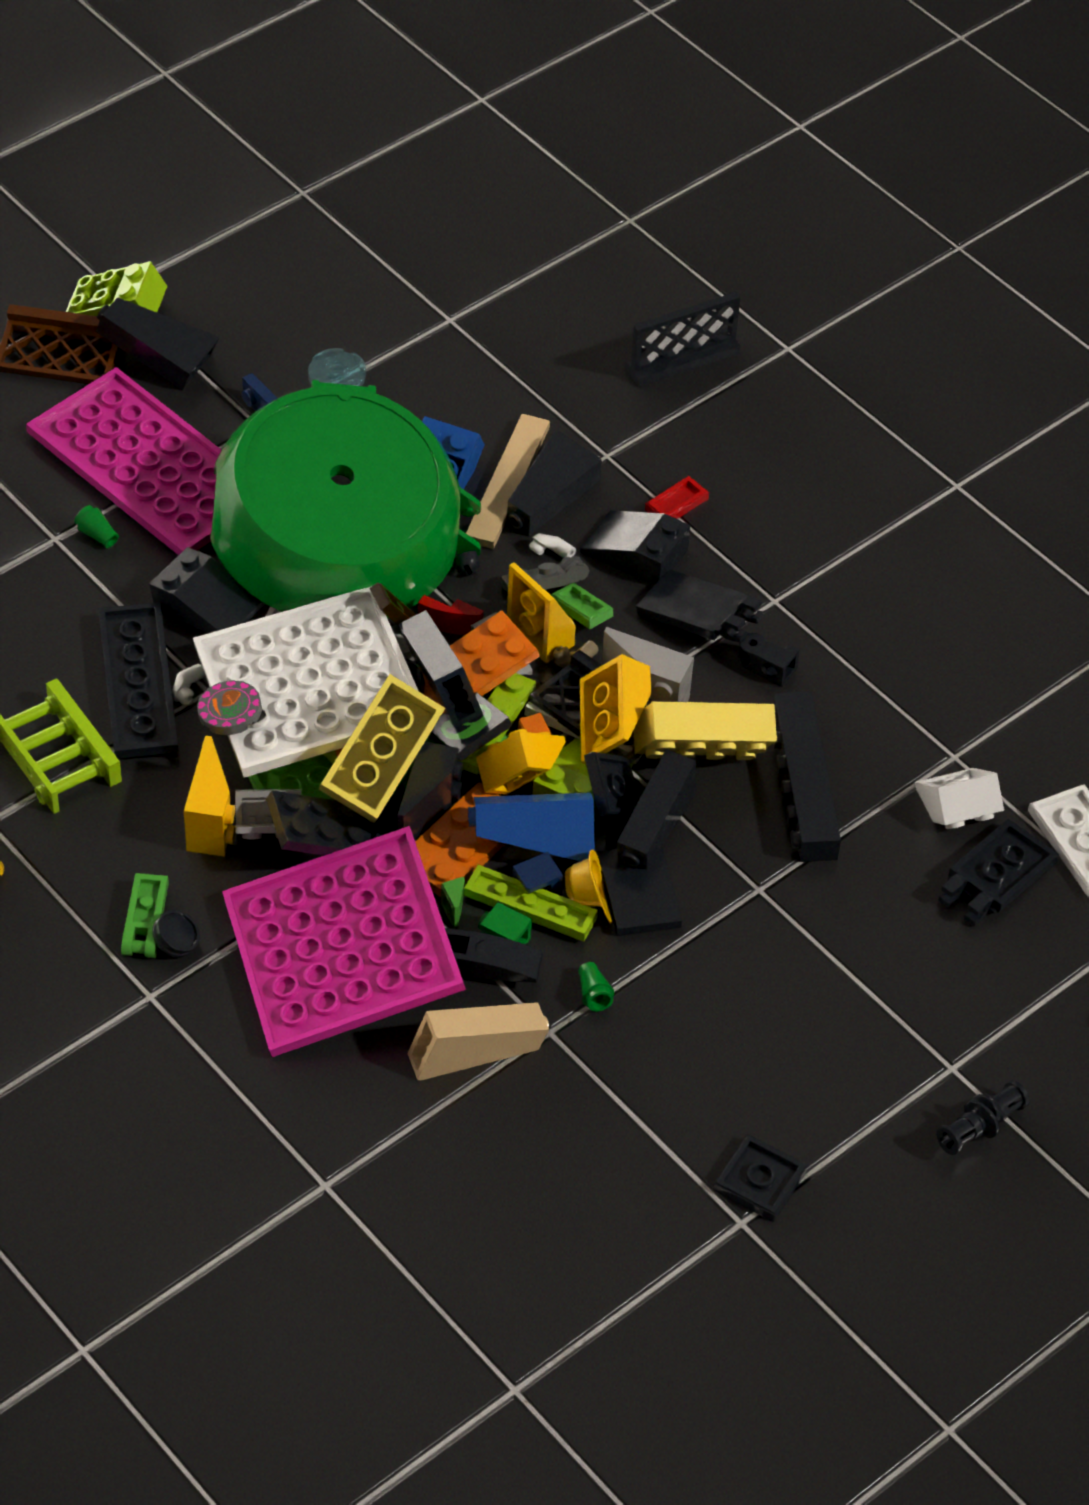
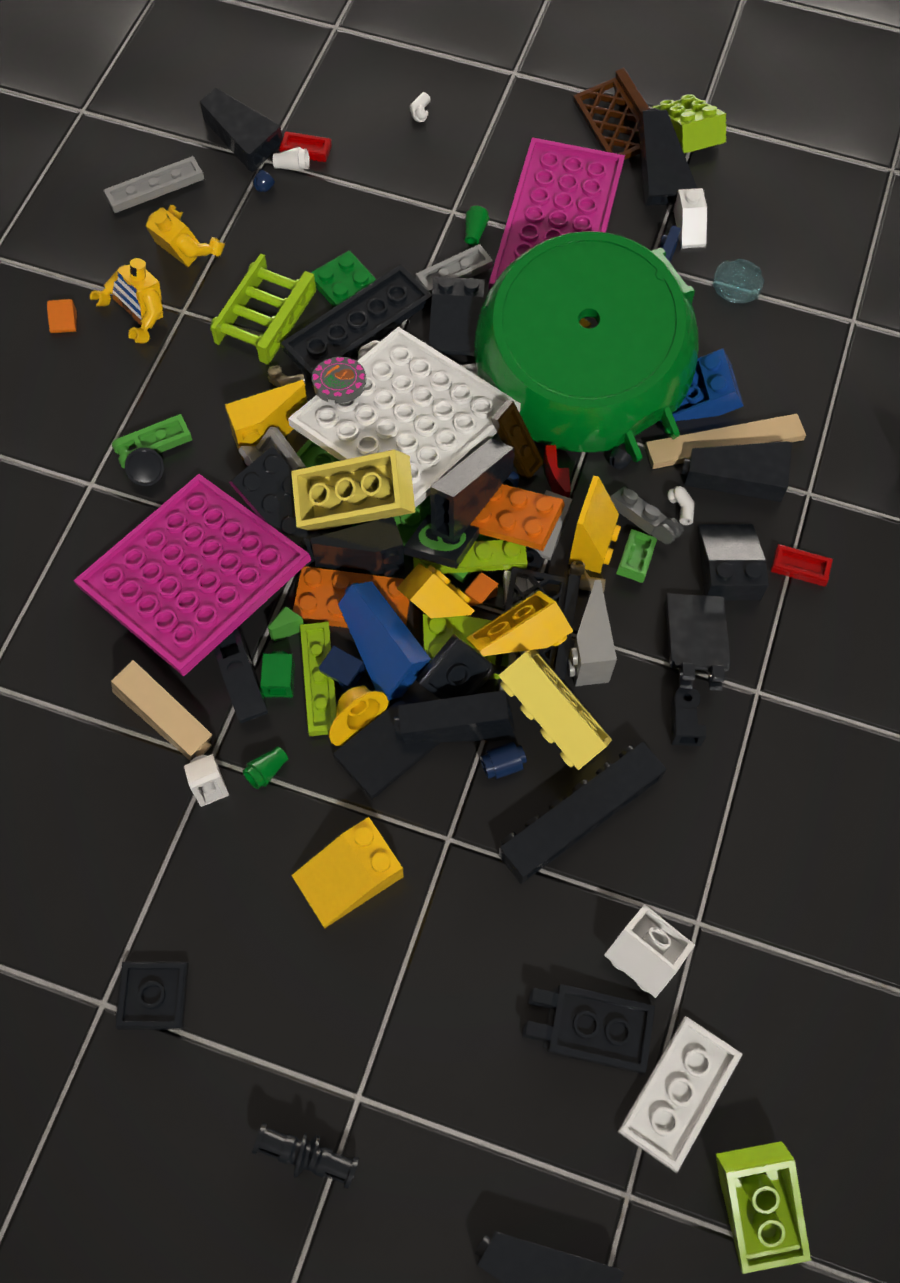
camera: 60 degrees right, 15 degrees up
(73, 663) = (342, 278): none -> green plate
(139, 568) = (463, 265): none -> light grey plate
(150, 778) = (279, 379): none -> dark tan arm
(234, 358) = (691, 217): none -> white slope
(577, 1030) = (205, 779): none -> white slope
(716, 806) = (503, 760): none -> dark blue brick
(745, 969) = (348, 872): none -> yellow slope

